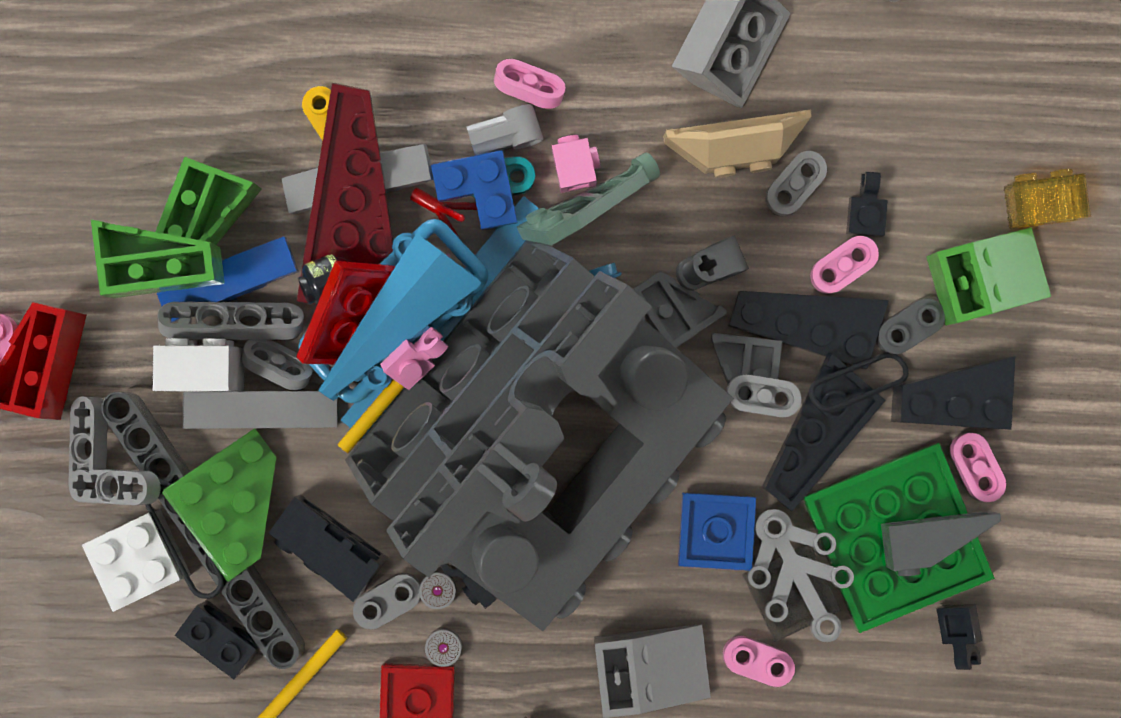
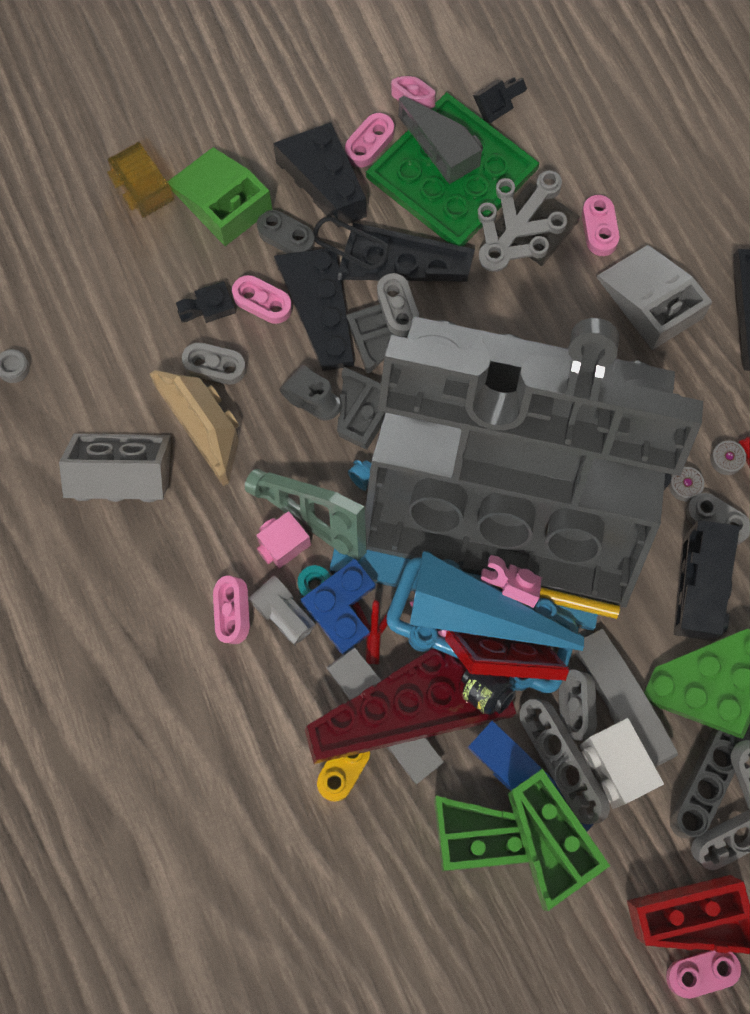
camera: 115 degrees left, 15 degrees down
(716, 531) = (520, 296): blue plate -> none
(1009, 540) = (413, 89): none -> bright pink plate

